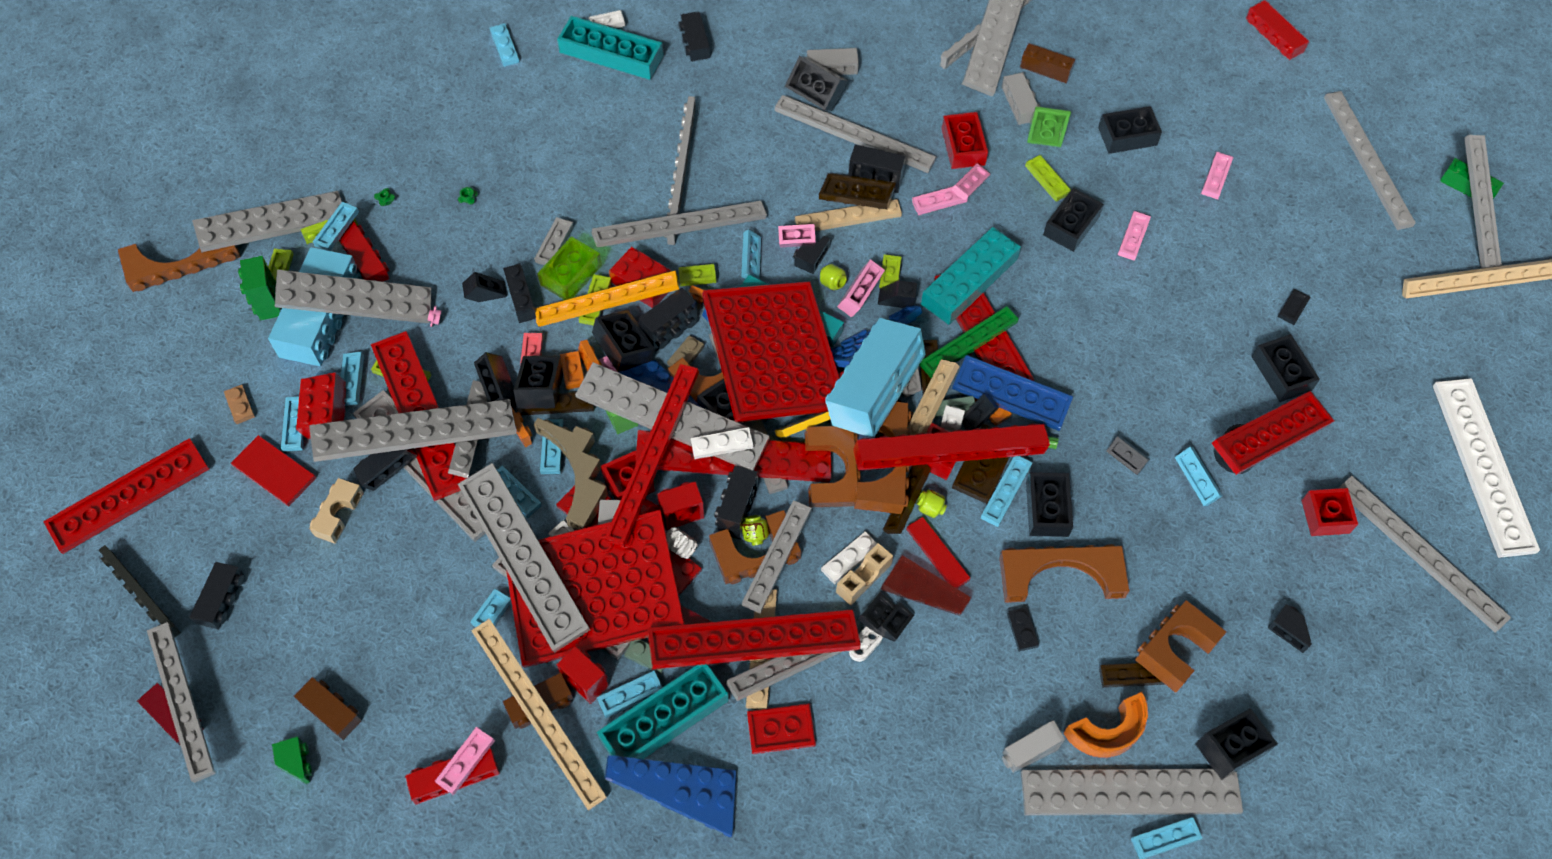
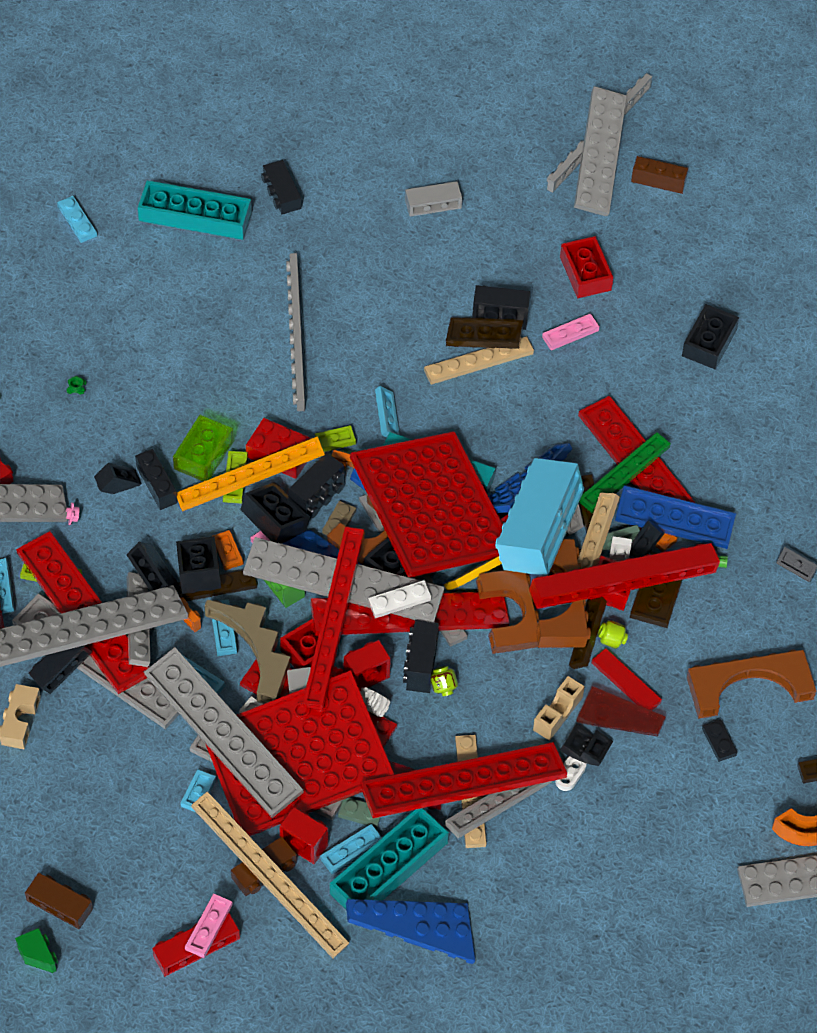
camera: 10 degrees left, 5 degrees down
(532, 344) = (179, 531): coral plate -> none
(554, 240) = (178, 422): light grey plate -> none
(587, 354) = (241, 535): orange plate -> none
(611, 19) = (189, 179): white plate -> none
(678, 223) = (308, 388): light grey plate -> none
(736, 566) = (431, 718): dark orange arch -> none
(776, 557) = (471, 701): light grey plate -> none
(780, 728) = (502, 861): red tile -> none
(796, 235) = (431, 386): bright pink brick -> none
(810, 255) = (448, 405): black arch -> none
(816, 83) = (421, 224): black brick -> none
(833, 277) = (475, 424): lime head -> none
(848, 558) = (539, 696): white plate -> none
(853, 132) = (468, 271): light grey plate -> none
(860, 288) = (506, 432): bright pink brick -> none
(891, 265) = (532, 412): lime plate -> none
(898, 294) = (544, 434): black slope -> none
(970, 182) = (600, 310): bright pink plate -> none
(970, 275) = (615, 406): teal brick -> none
(1006, 490) = (683, 613): medium azure plate -> none
(1019, 97) = (637, 215): light grey brick -> none
(1033, 747) = (746, 842): light grey slope -> none
(1047, 178) = (678, 296): lime plate -> none
(1048, 126) = (670, 243): bright green slope -> none
(1049, 504) = (727, 620): black brick -> none
(1129, 130) = (754, 236): black brick -> none
(1134, 235) = (774, 345): bright pink plate -> none

